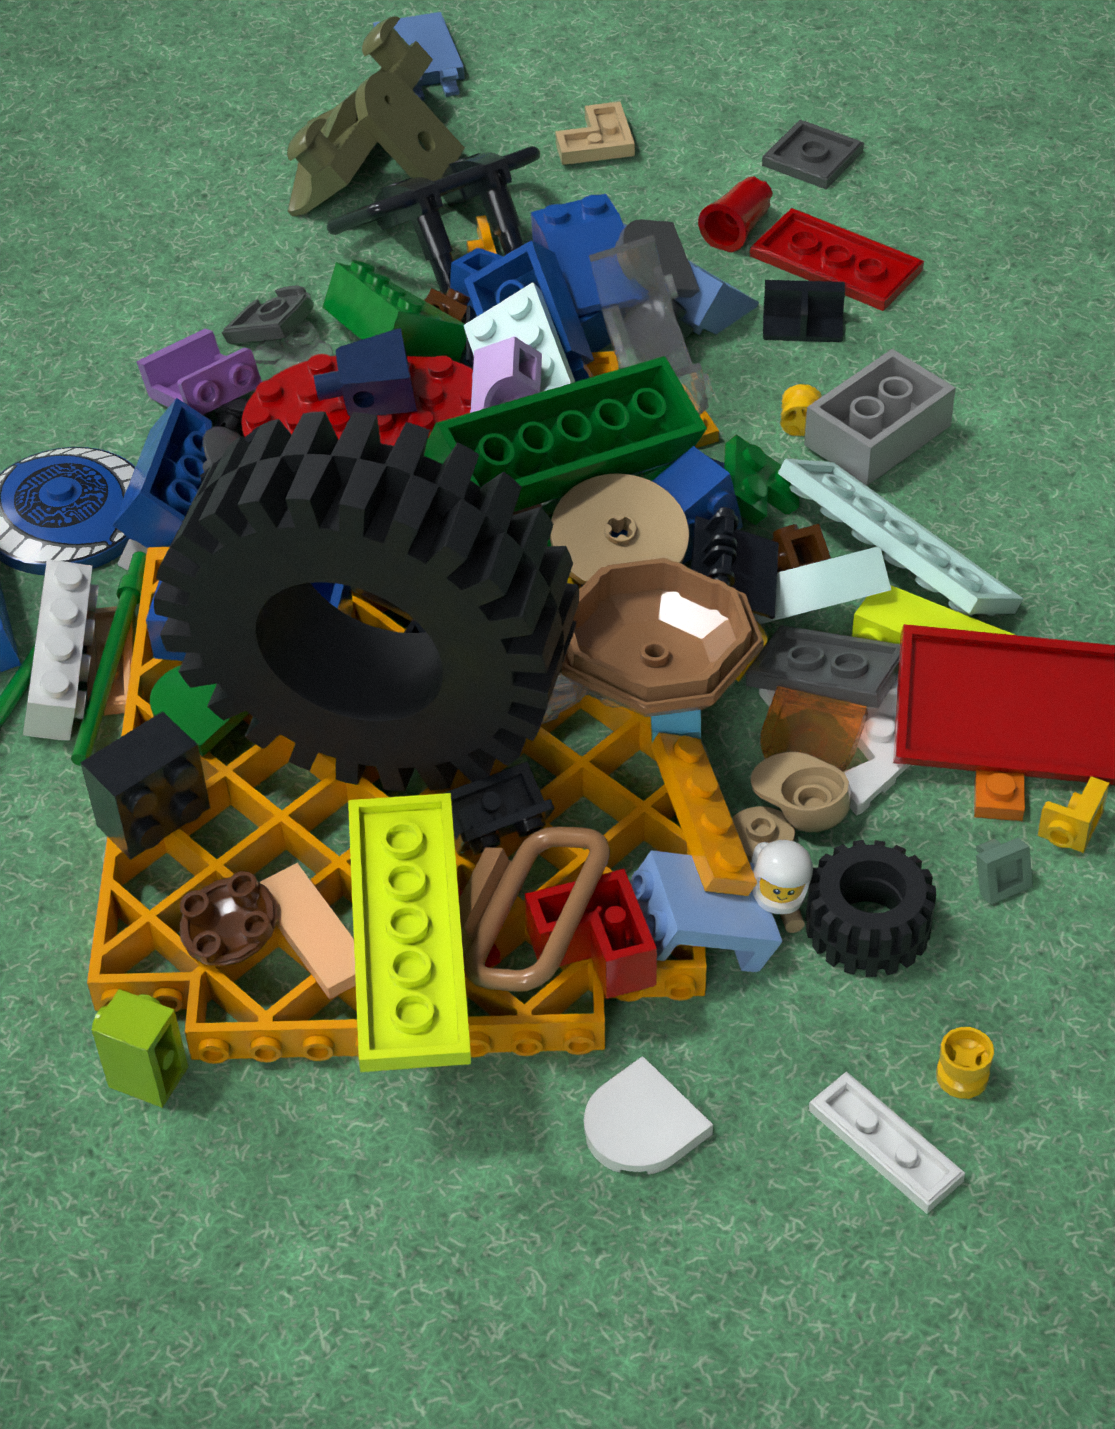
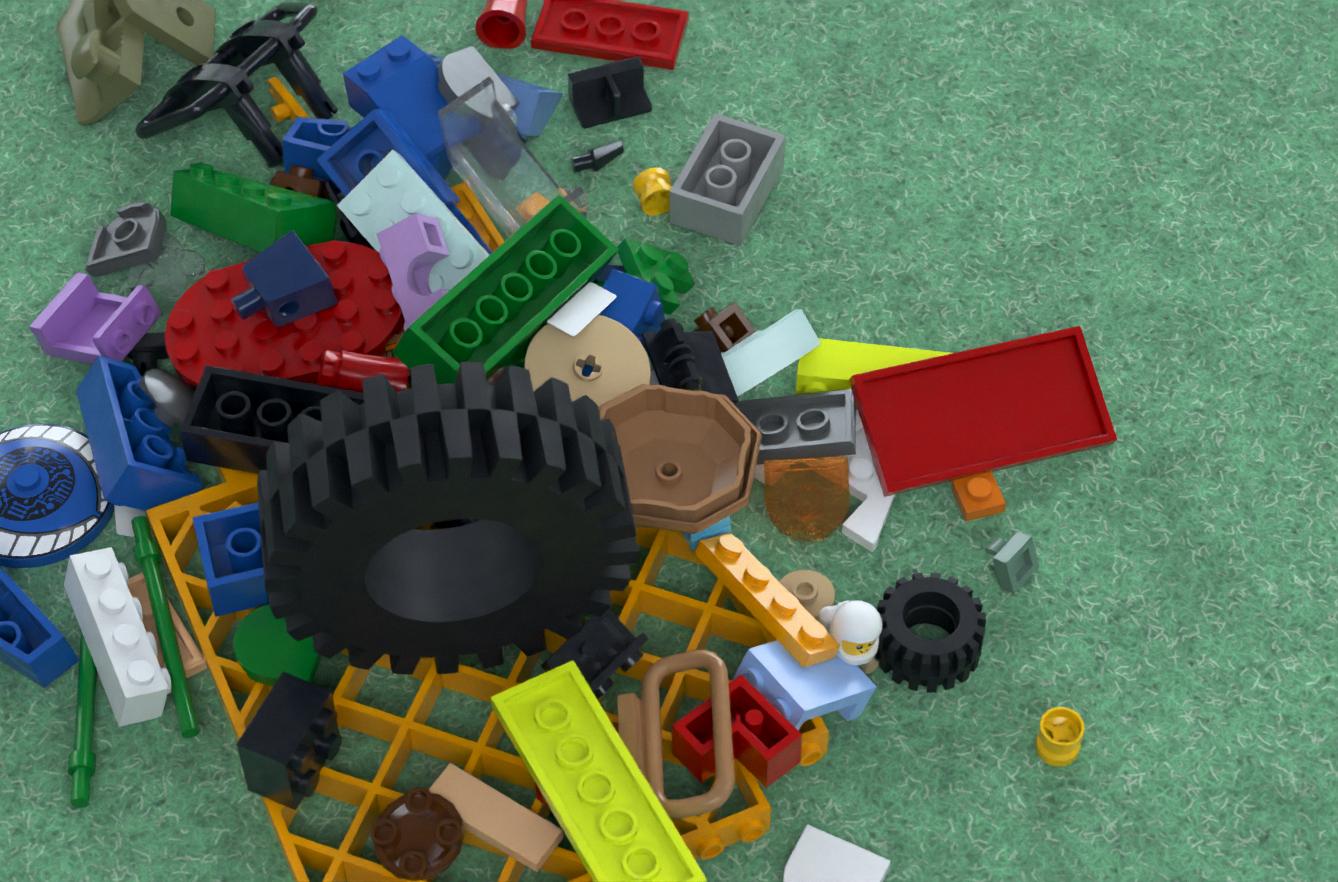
camera: 25 degrees left, 5 degrees up
(640, 473) = (581, 309): none -> white sticker
(762, 366) = (597, 157): none -> black bar
(805, 788) = (828, 544): tan cap -> none
(887, 1142) = (1026, 823): white tile -> none
(900, 537) = (786, 284): light aqua plate -> none
(1074, 824) = (1050, 502): yellow bracket -> none

